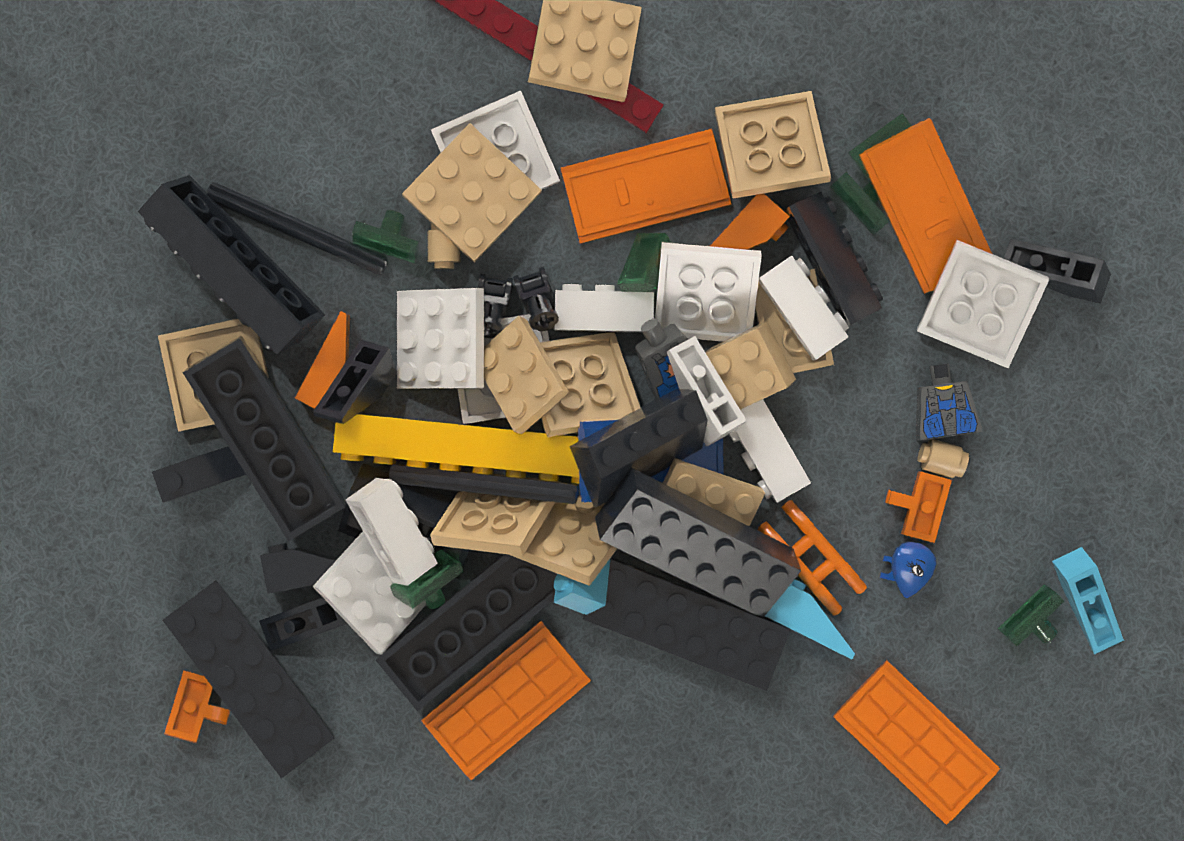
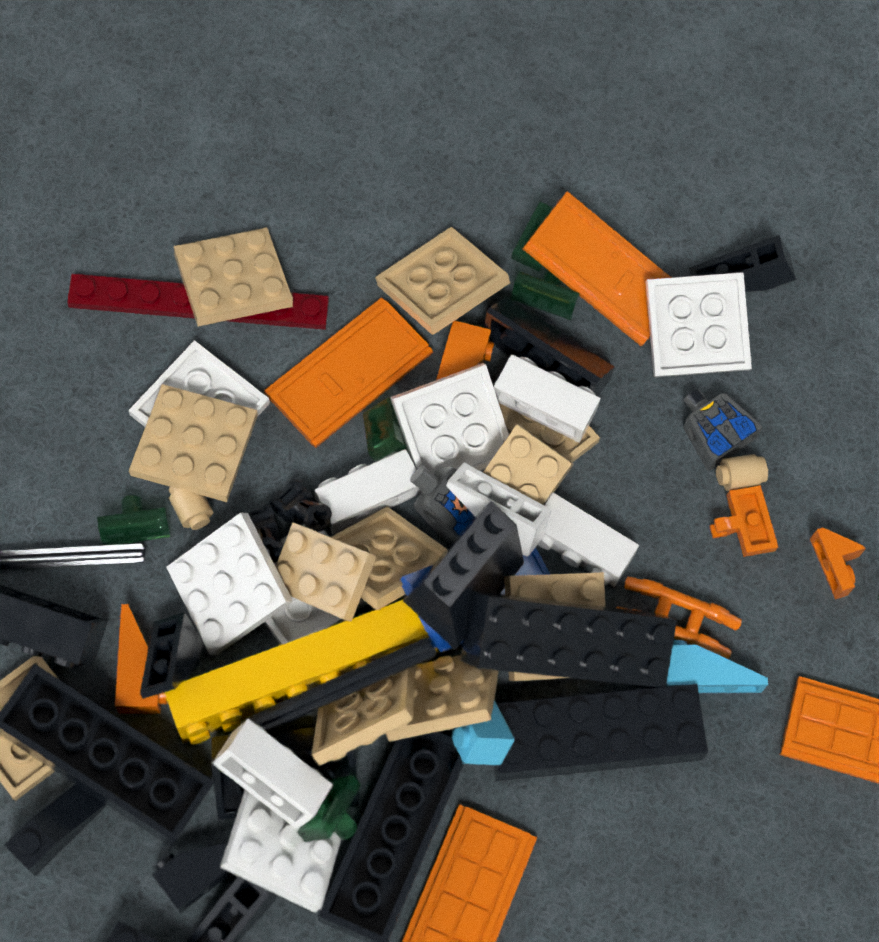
camera: 30 degrees left, 20 degrees down
(911, 567) = (772, 575): blue piece -> none
(978, 570) = (832, 554): none -> orange slope

